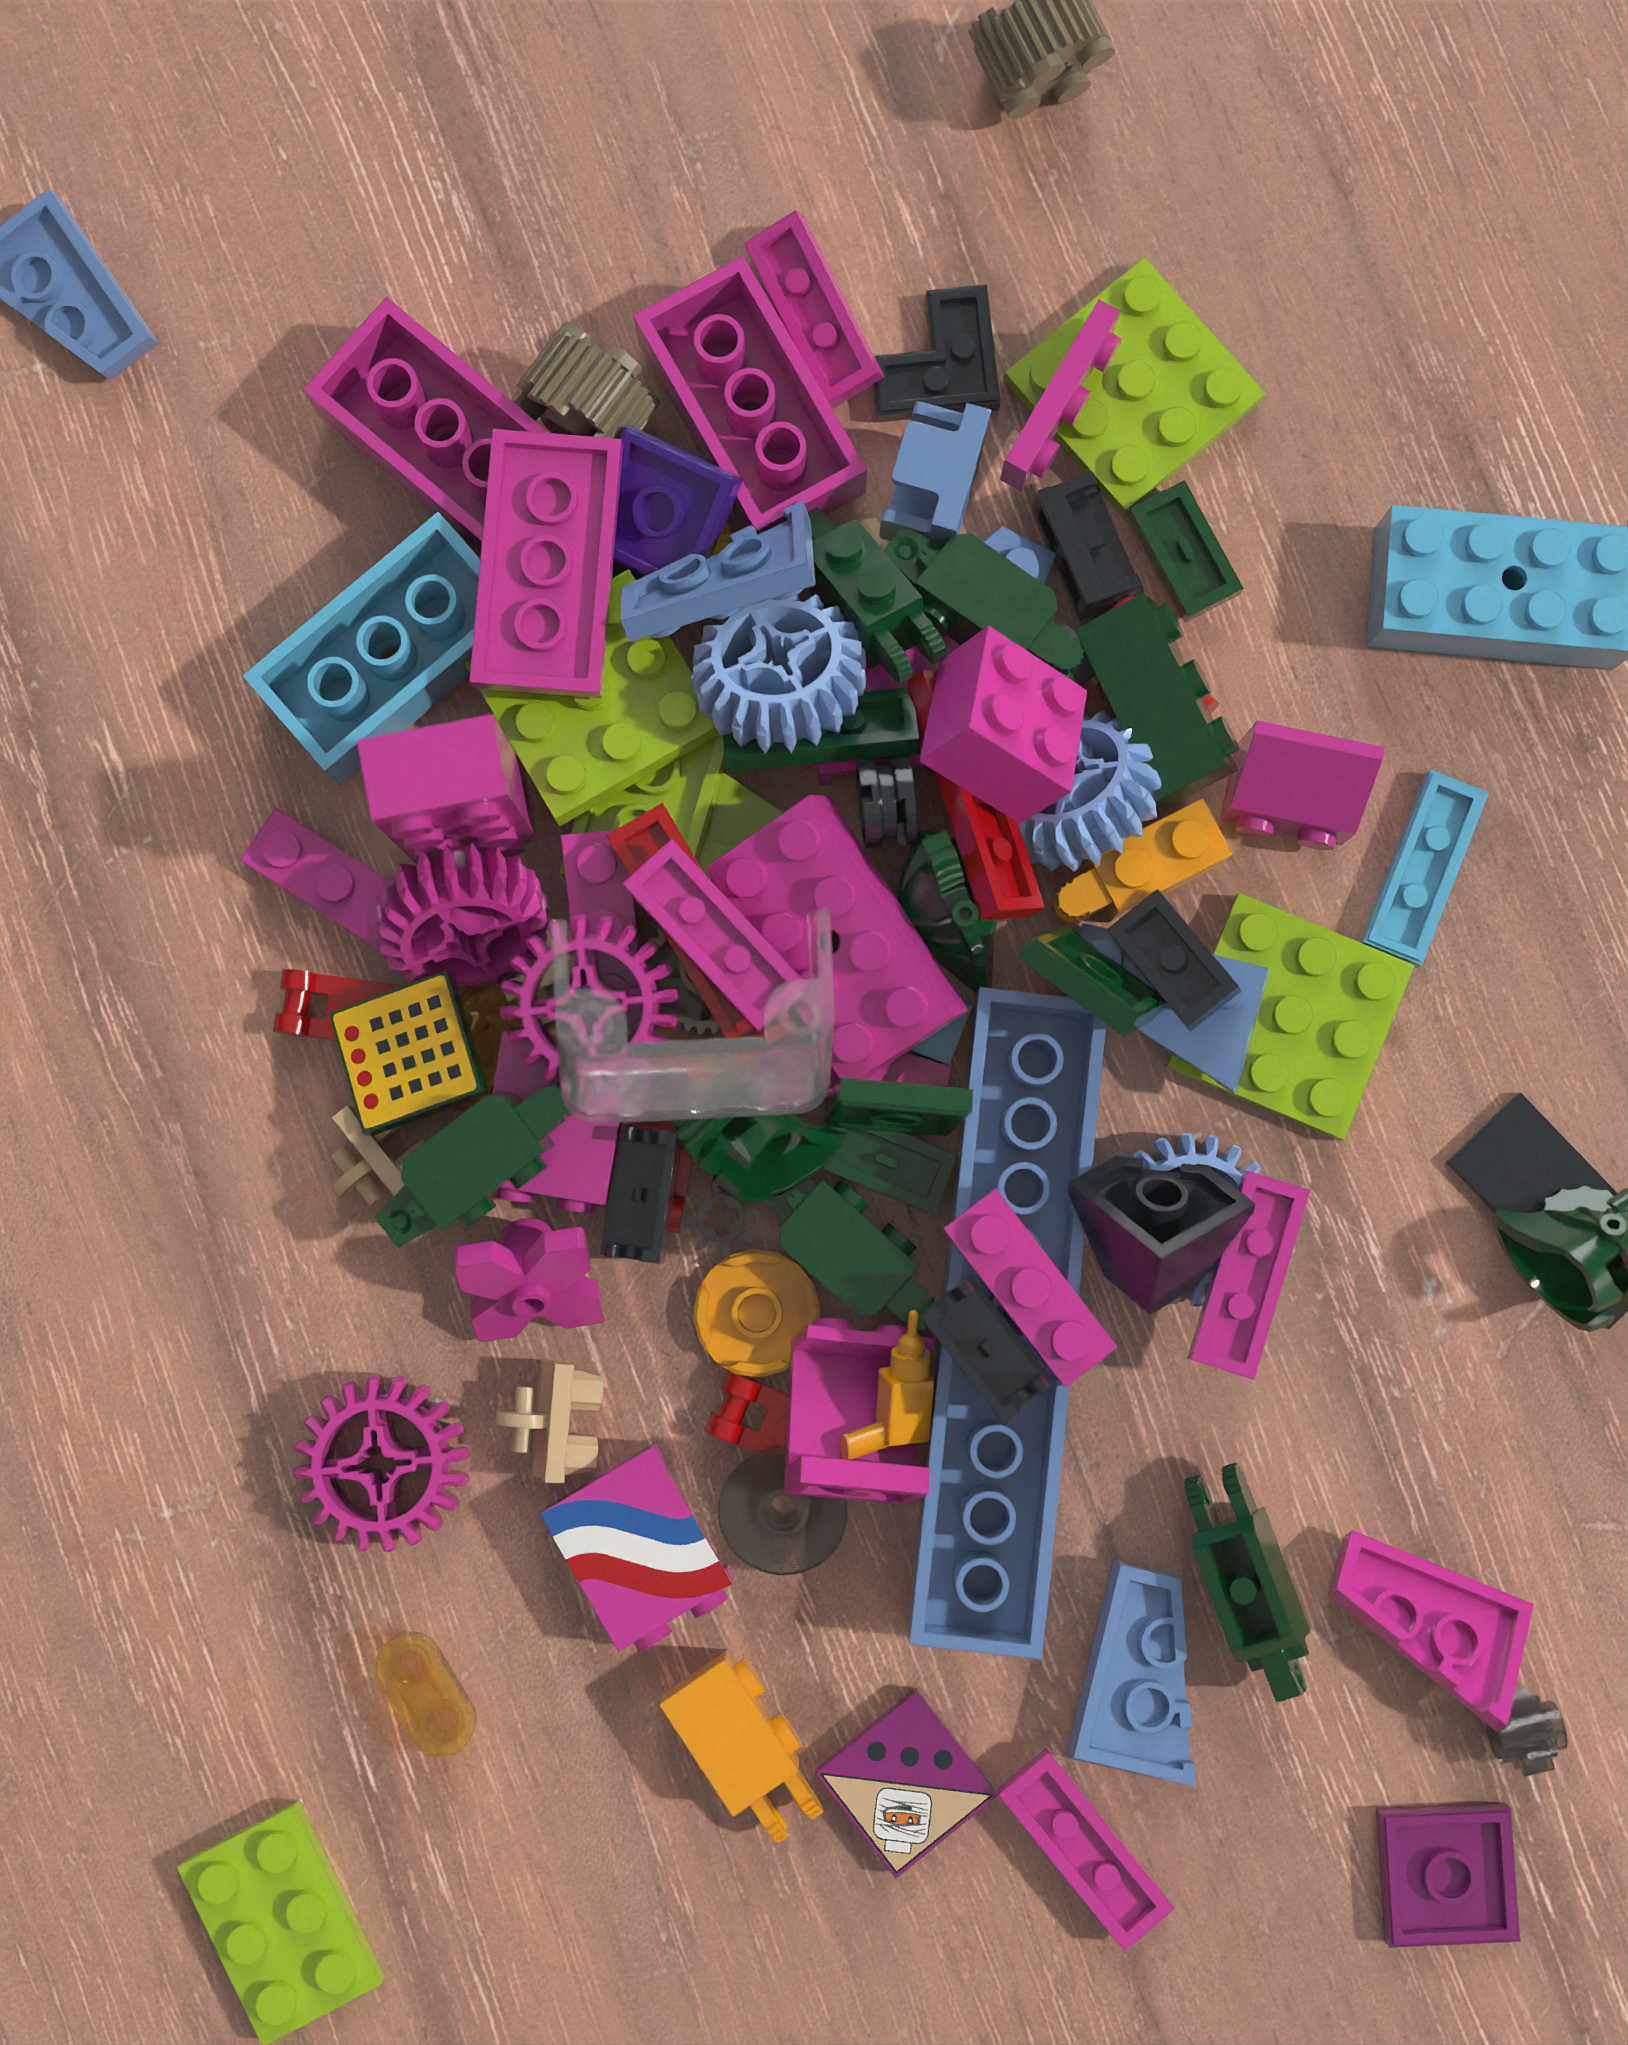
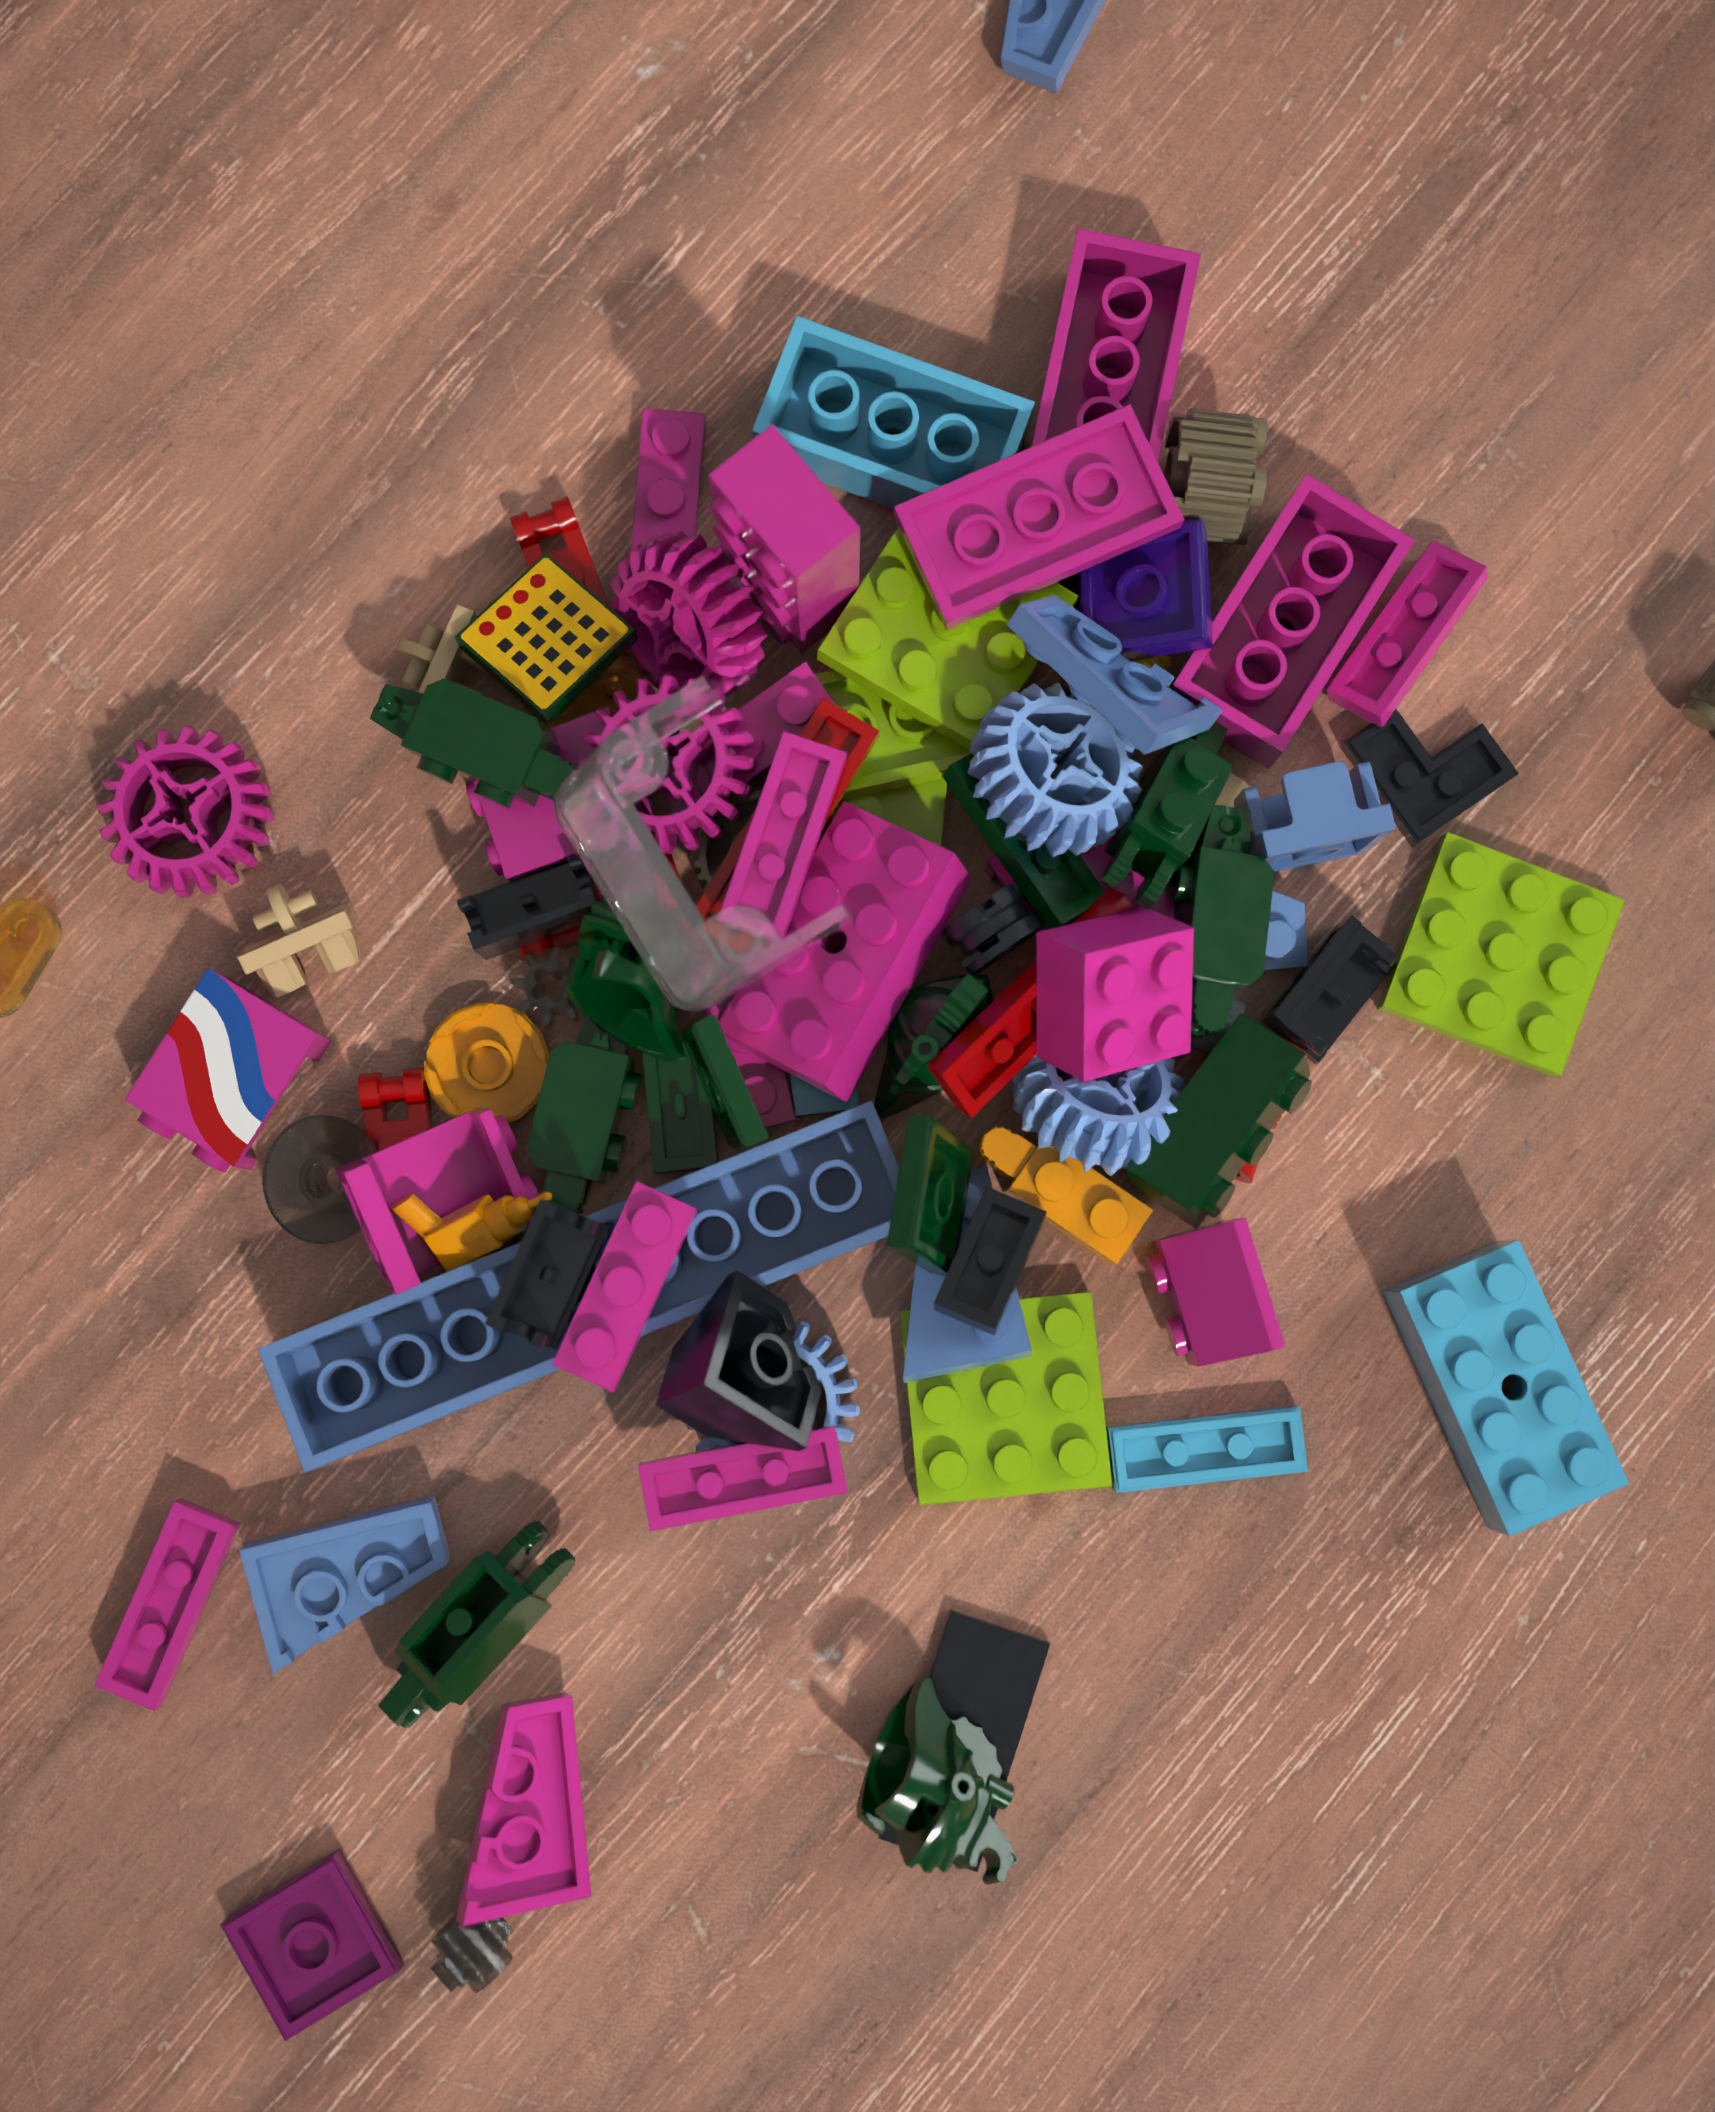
camera: 60 degrees right, 0 degrees up
(528, 1277) = (408, 847): dark pink plant -> none
(739, 1741) = (105, 1249): light orange hinge -> none
(906, 1783) = (146, 1415): tile -> none
(1063, 397) = (1450, 891): dark pink plate -> none
(1184, 551) = (1374, 1079): dark green plate -> none

